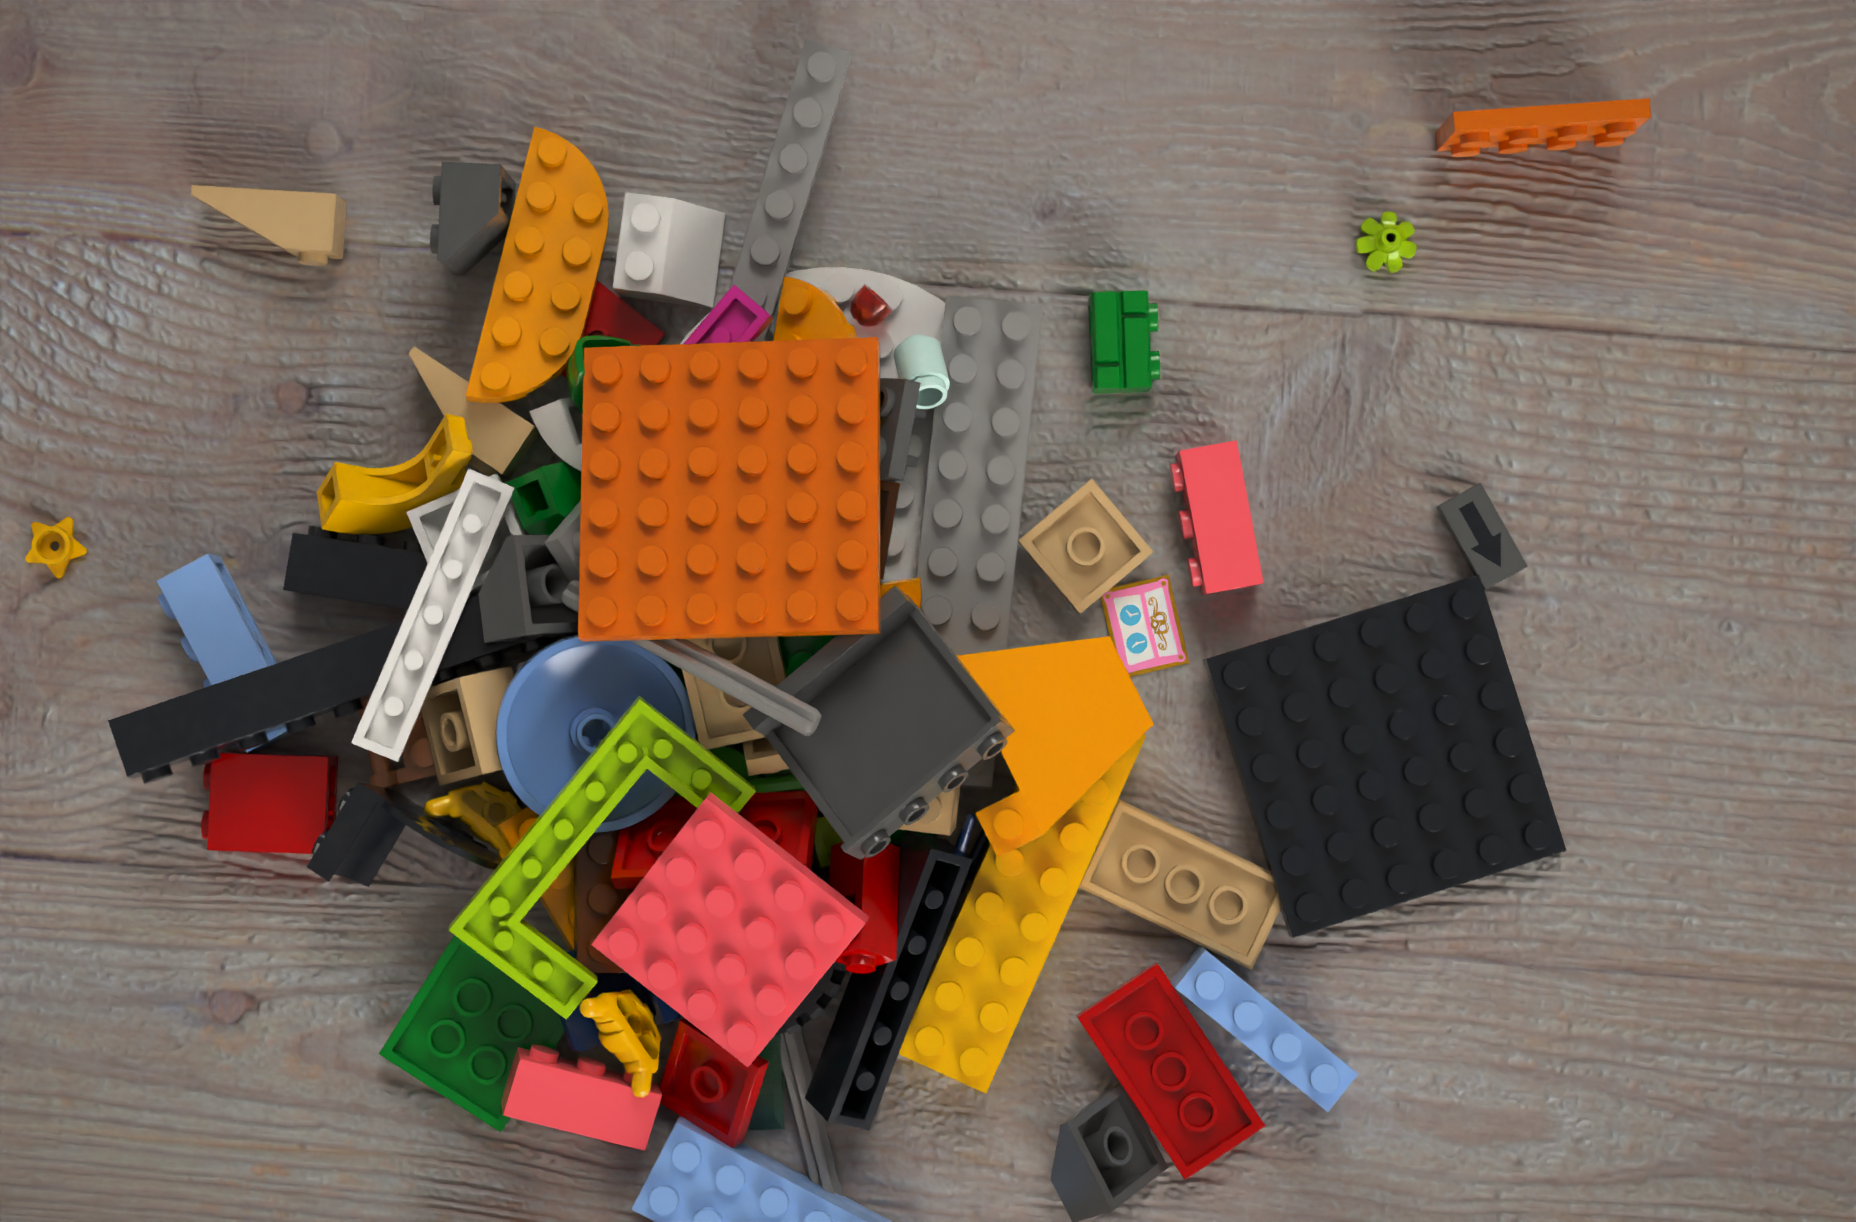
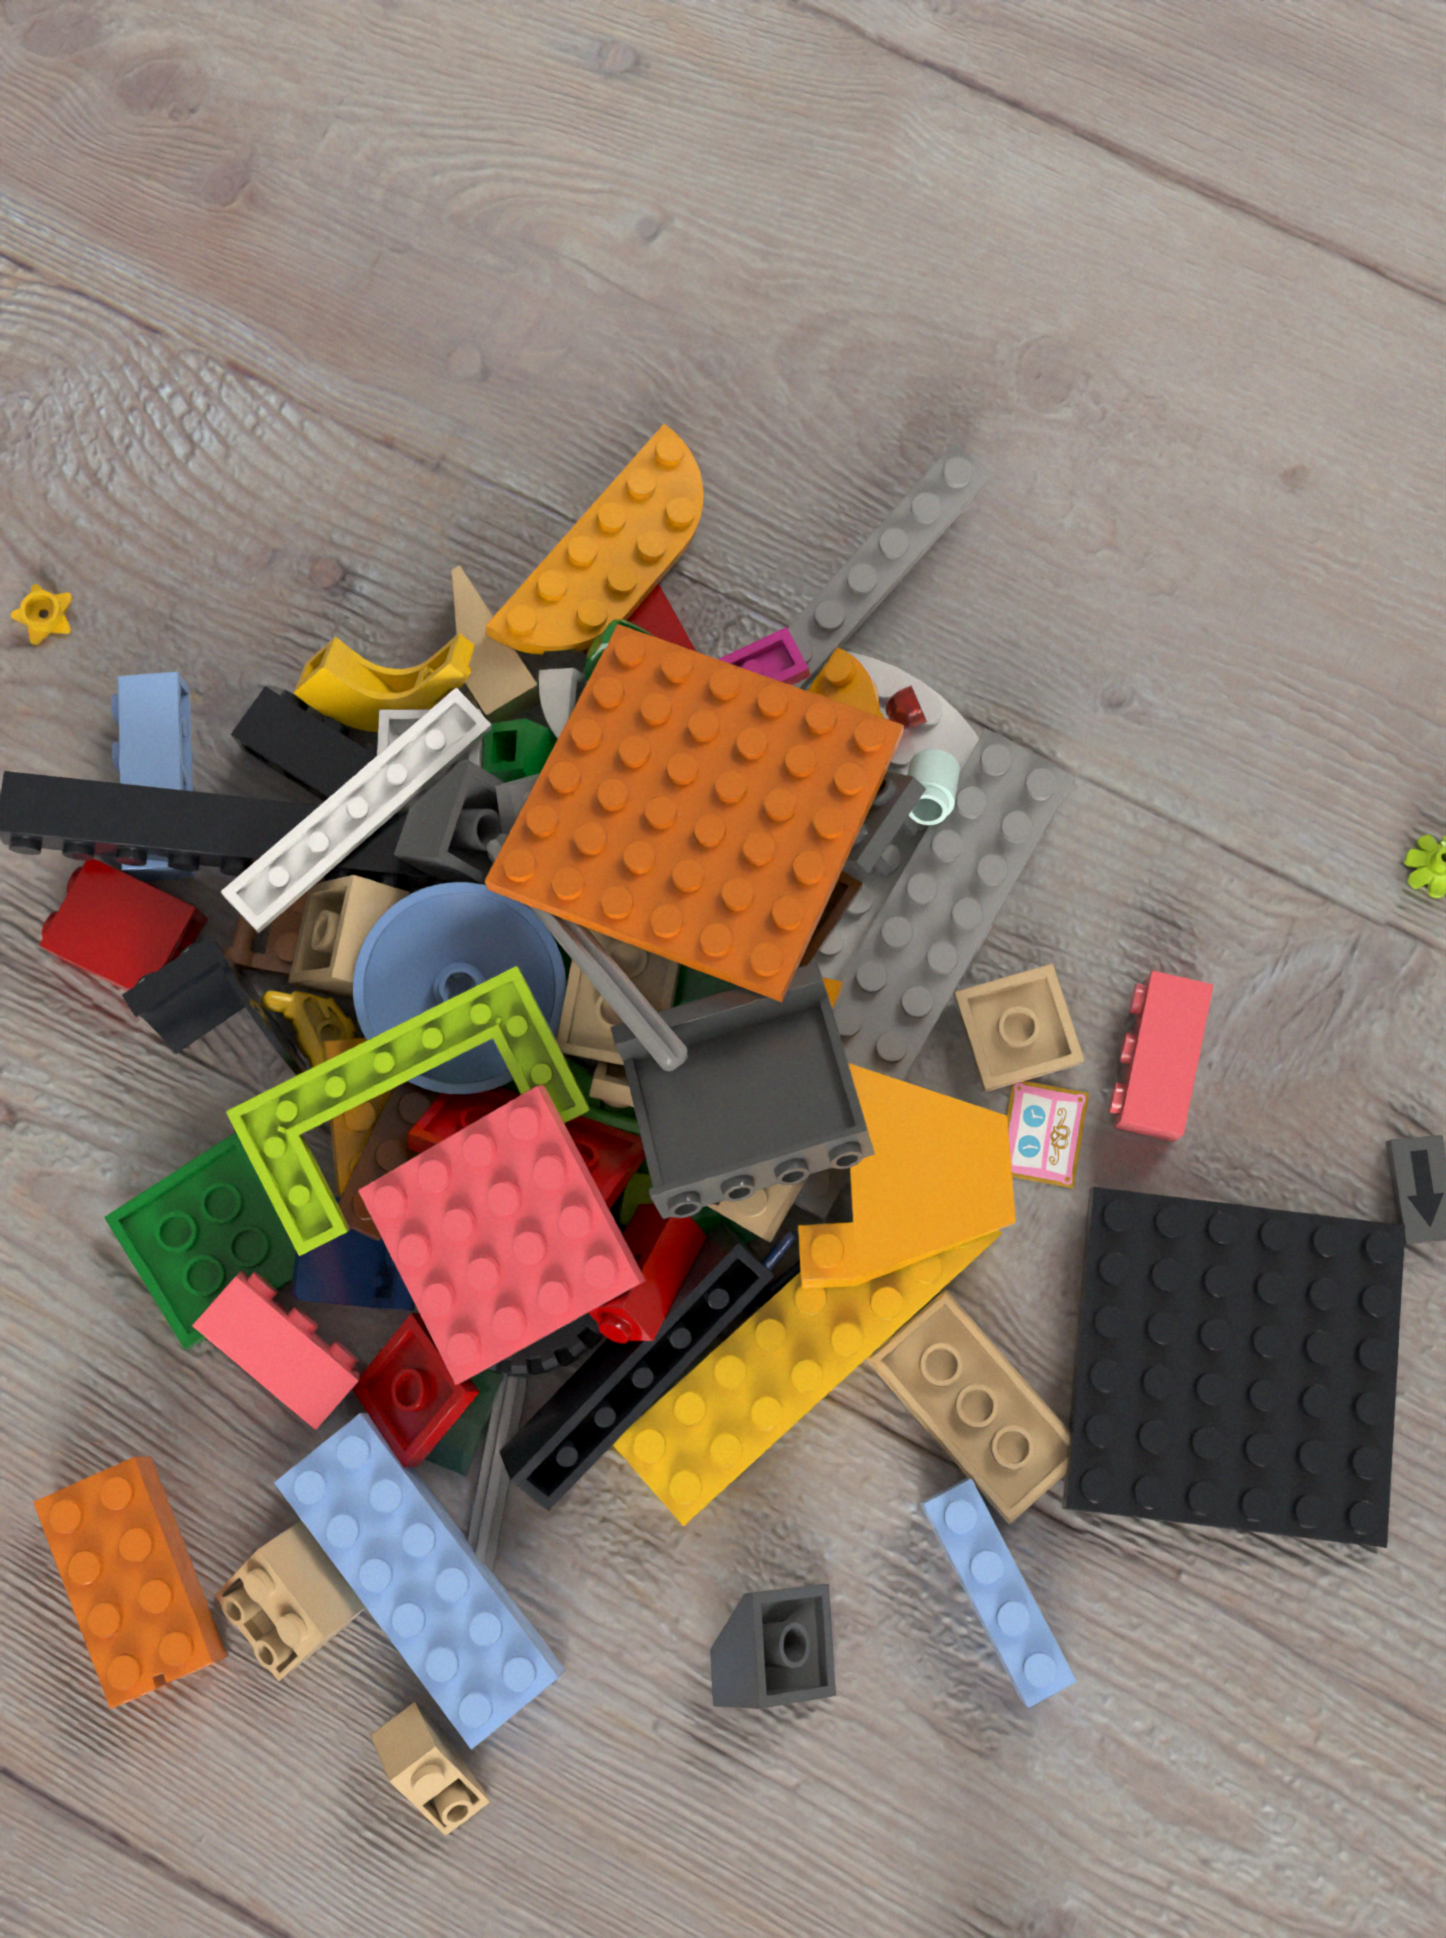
camera: 25 degrees right, 10 degrees down
(297, 222) = (404, 414): tan slope -> none
(473, 212) = (570, 469): dark grey slope -> none
(628, 1032) = (354, 1300): yellow piece -> none
(668, 251) = (736, 581): white slope -> none
(1121, 342) = (1136, 847): green brick -> none
(1170, 1070) = (882, 1594): red plate -> none

